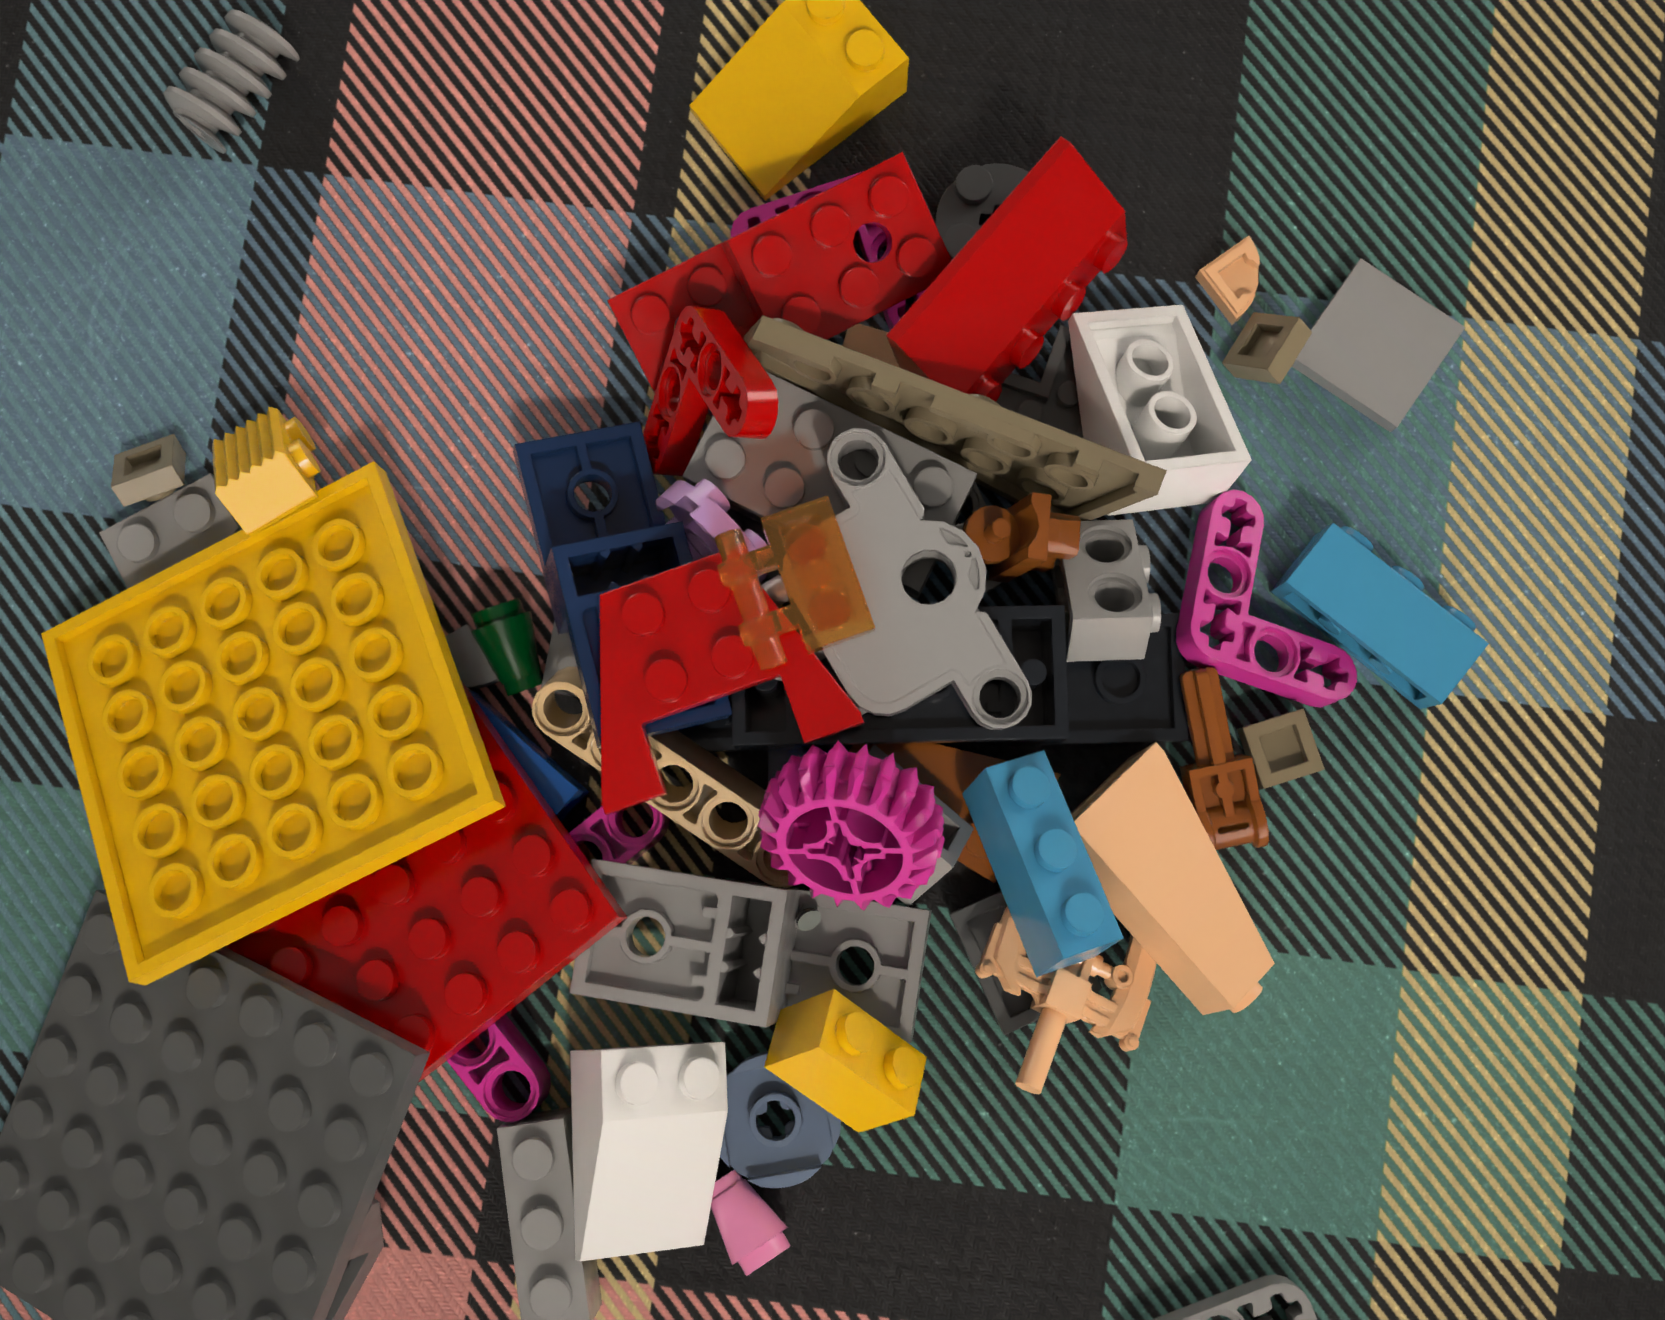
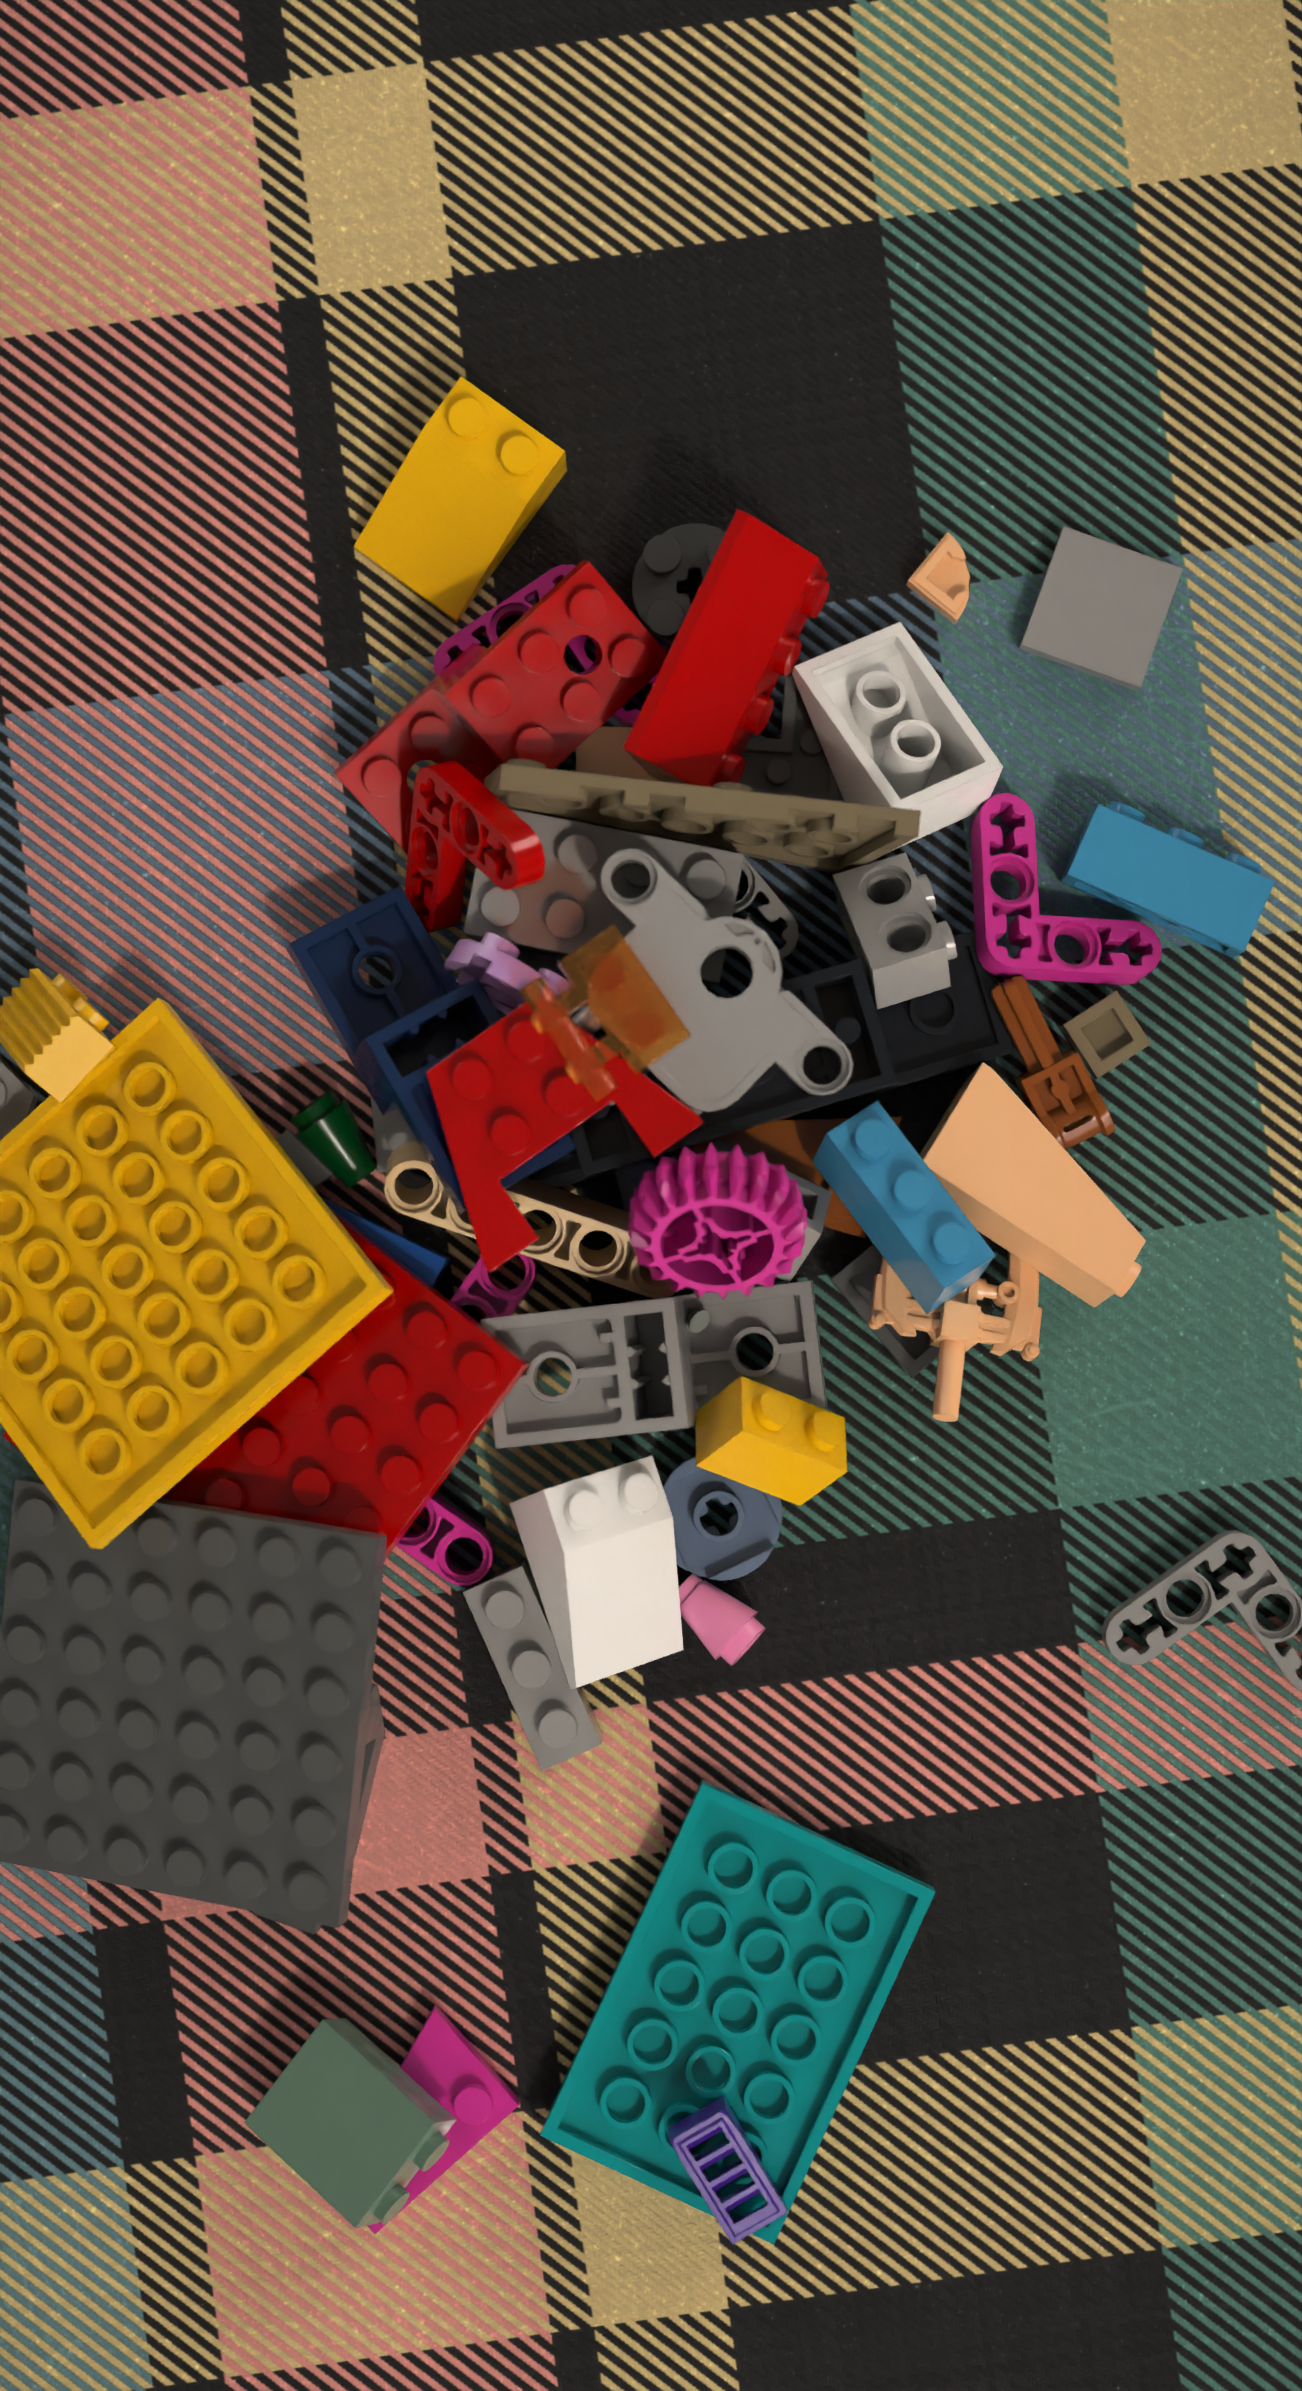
camera: 20 degrees left, 5 degrees up
(1023, 536) = (802, 903): dark orange hips -> none
(1267, 347) = (993, 643): dark tan plate -> none

